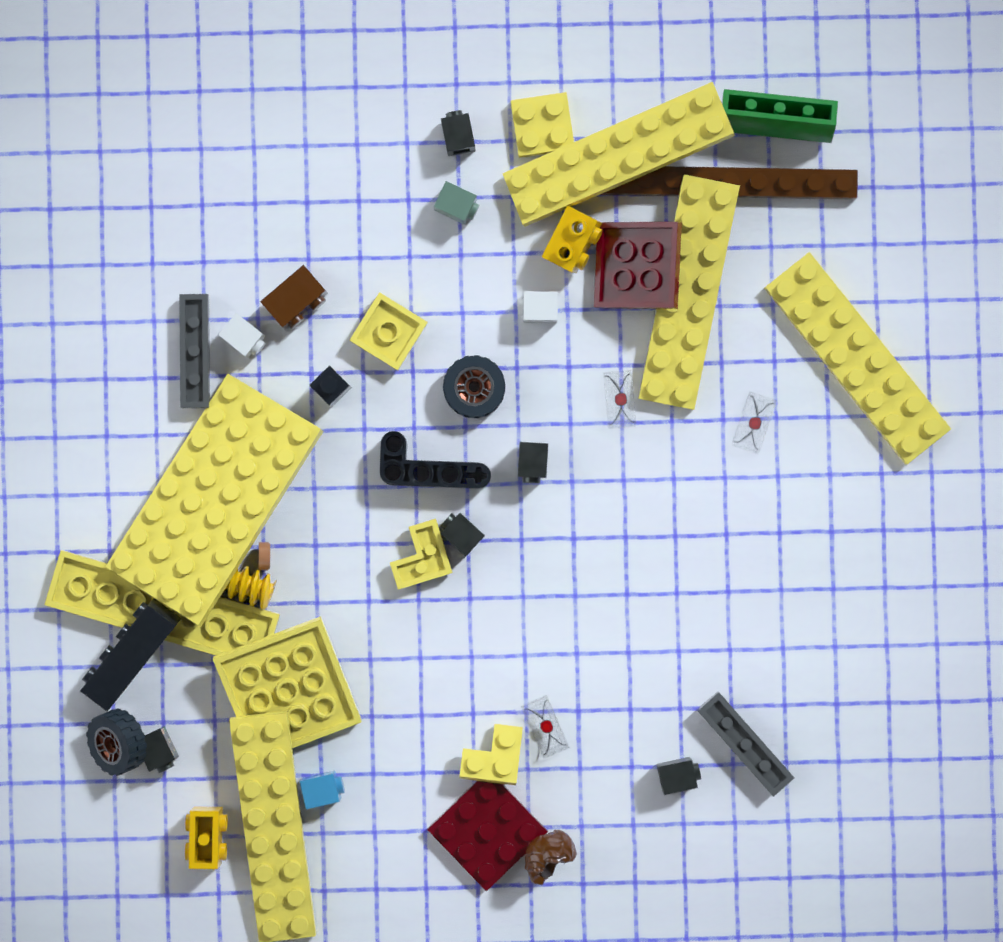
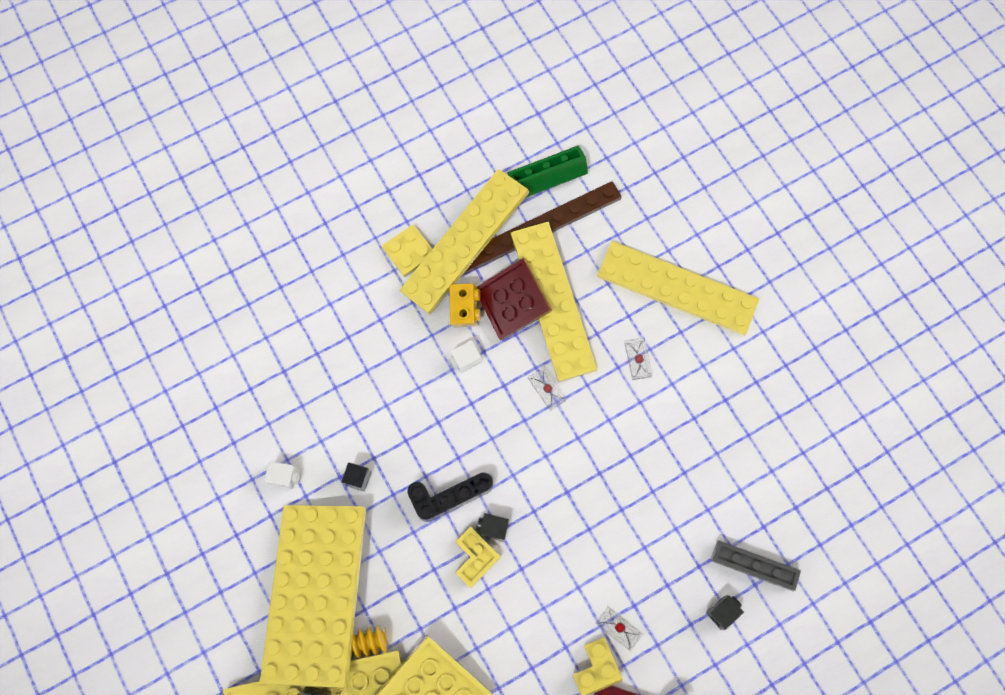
camera: 30 degrees left, 15 degrees down
(194, 350) = (254, 502): dark grey plate -> none
(264, 556) = (367, 613): nougat tile -> none
(294, 298) = (304, 433): reddish brown brick -> none
(388, 331) = (376, 422): light yellow plate -> none
(456, 203) = (379, 321): sand green brick -> none
(457, 383) = (450, 416): black wheel -> none
(458, 133) = (358, 280): pearl dark grey brick -> none
(532, 461) = (514, 454): pearl dark grey brick -> none

